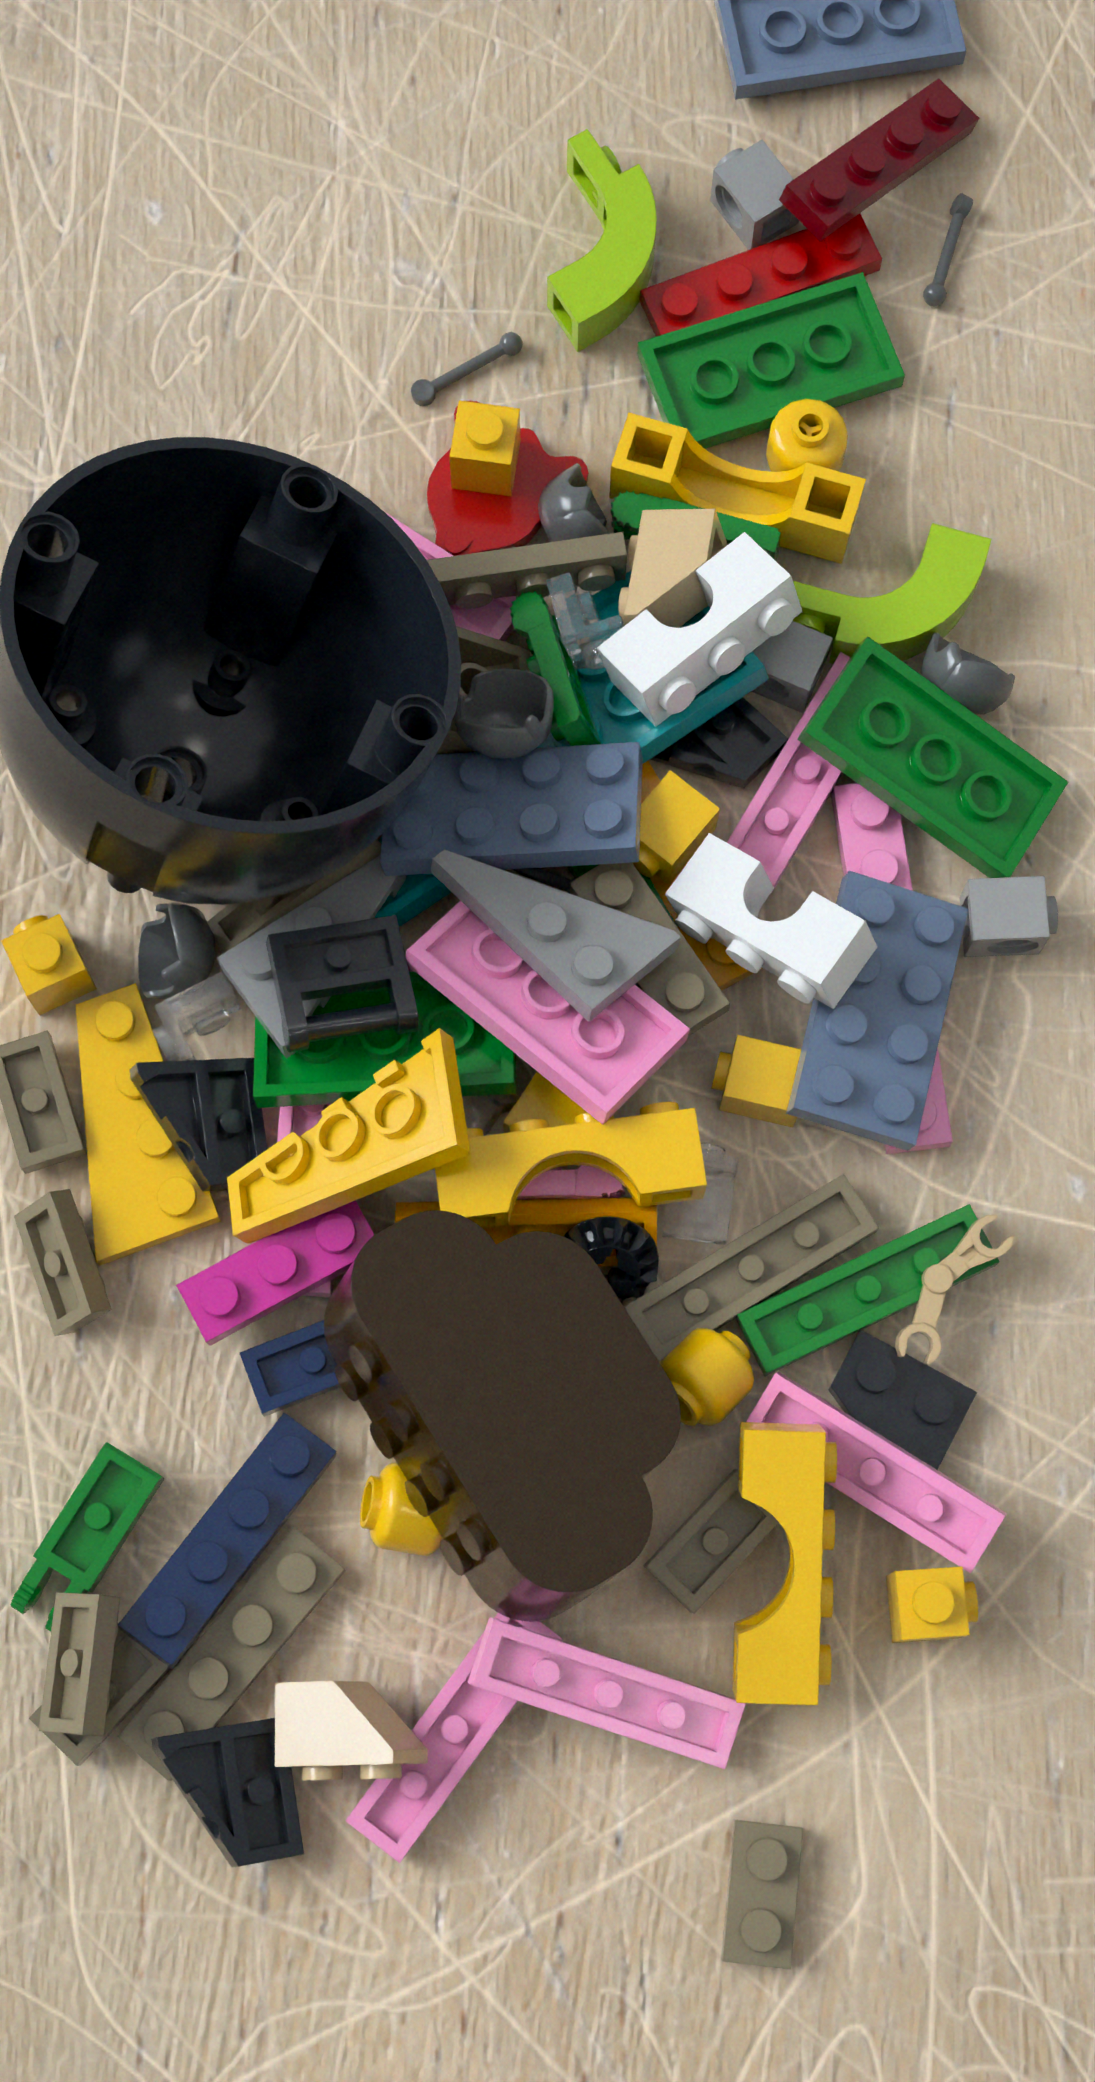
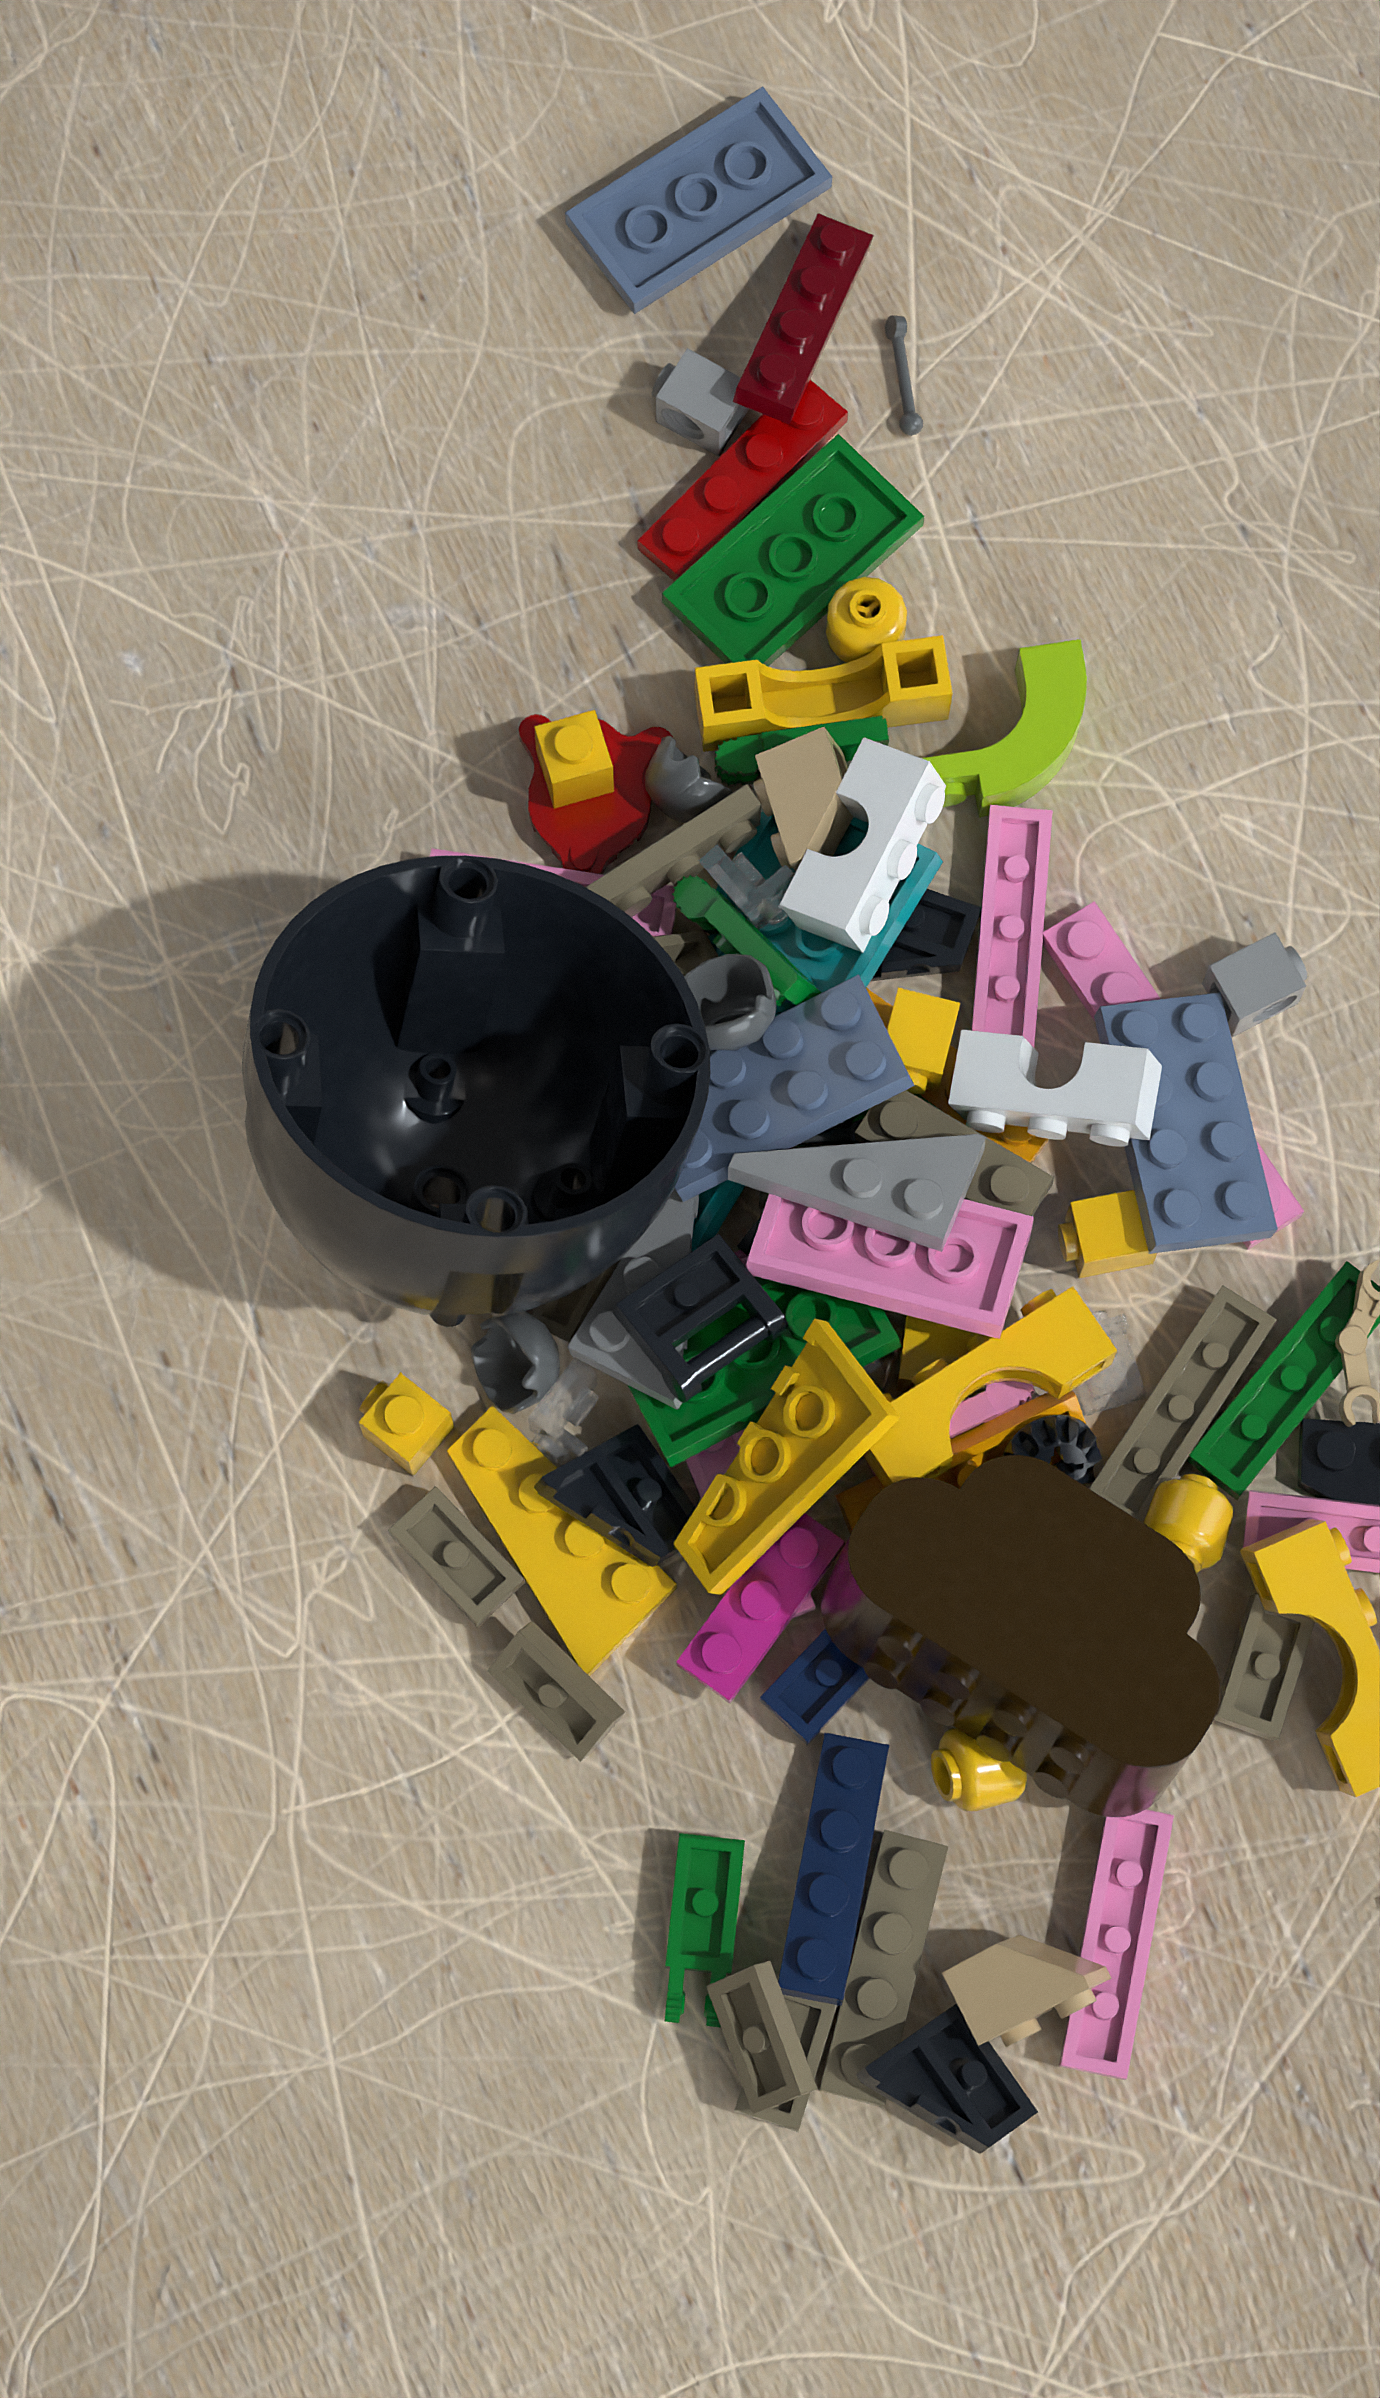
camera: 25 degrees left, 0 degrees up
(424, 391) = (478, 725): dark grey hinge -> none
(605, 284) = (604, 550): lime arch -> none
(606, 1693) = (1236, 1843): bright pink plate -> none
(793, 665) = (957, 836): light grey brick -> none
(933, 760) = (1124, 869): green plate -> none
(965, 676) = (1113, 780): dark grey hair -> none

